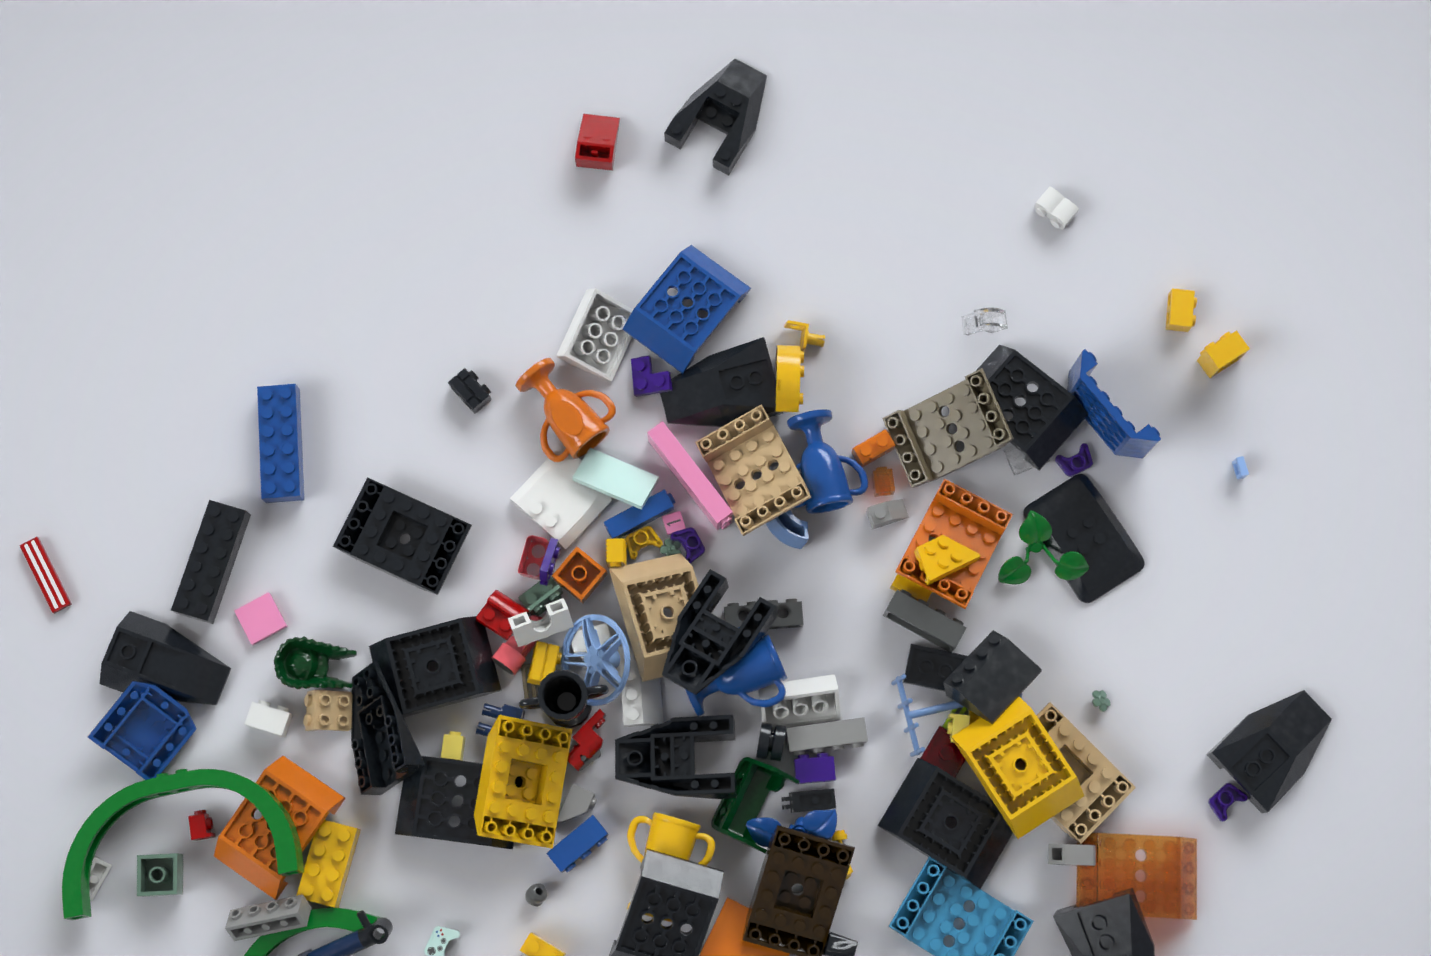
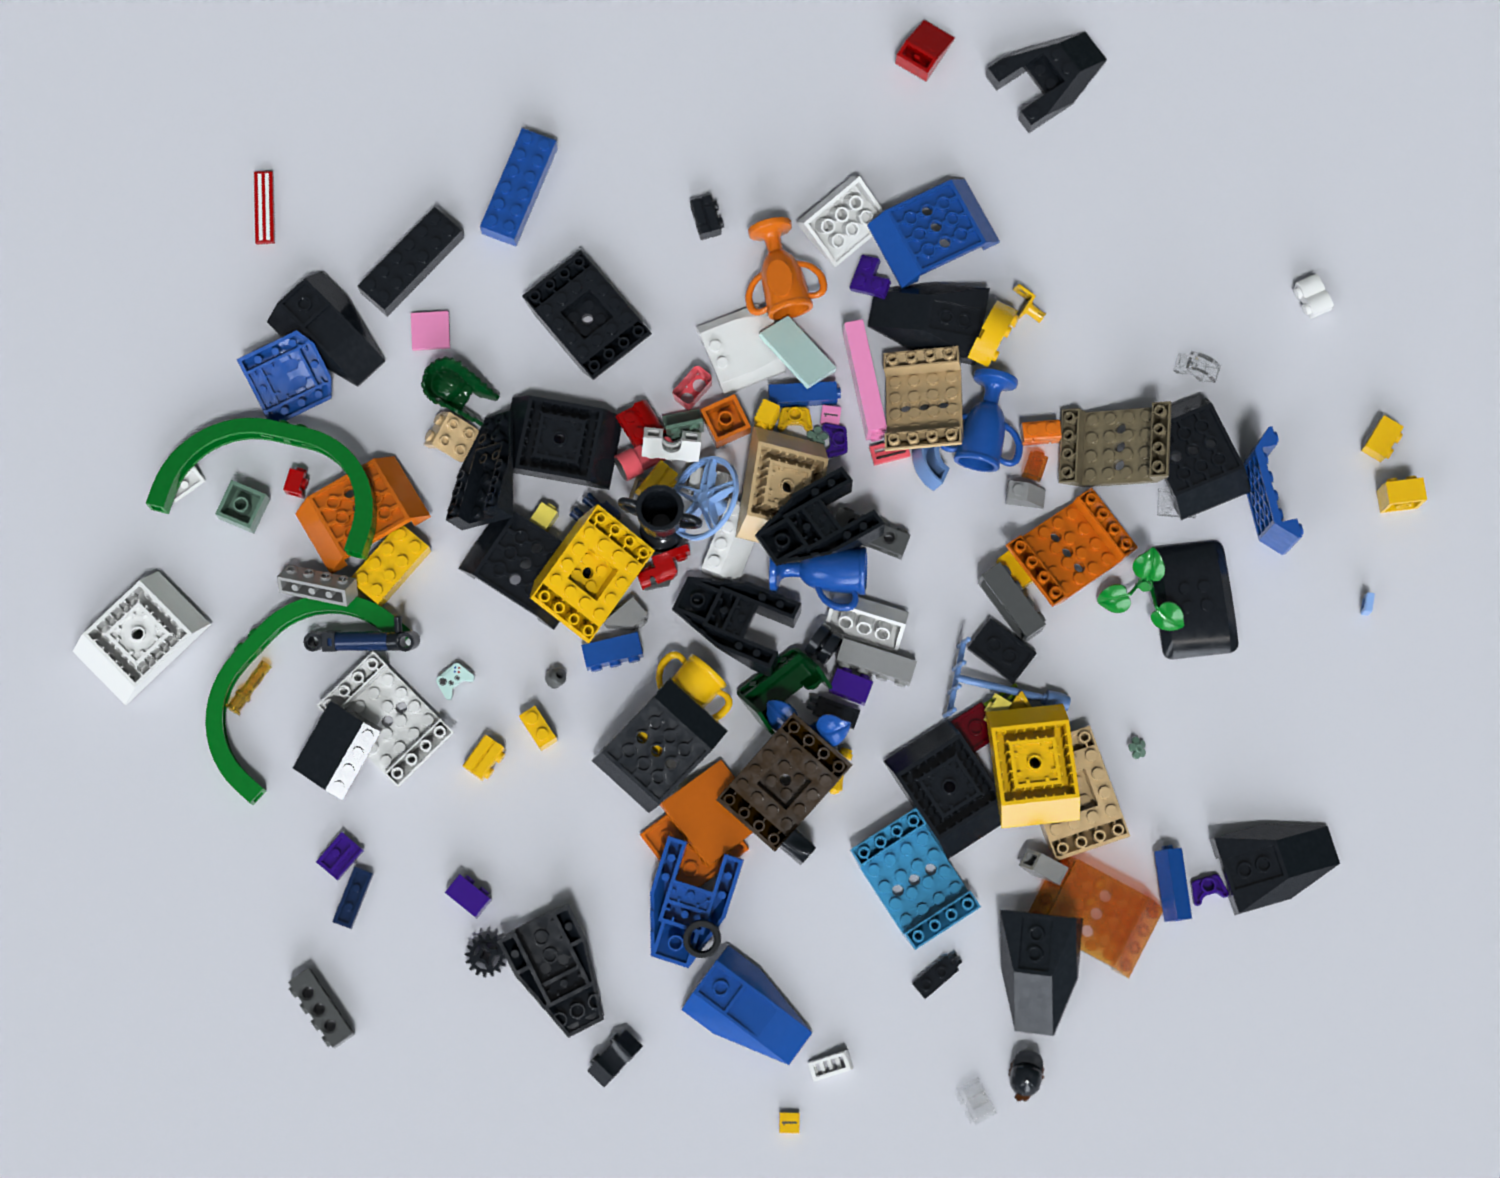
camera: 25 degrees right, 0 degrees up
(269, 719) = (397, 419): white brick -> none
(548, 565) = (705, 395): dark purple plate -> none
(741, 542) = (887, 459): none -> coral tile
(943, 557) = (1055, 554): yellow wing -> none
(991, 677) = (1047, 678): black slope -> none
(1076, 463) = (1219, 531): dark purple piece -> none
(1194, 812) = (1173, 884): none -> blue brick

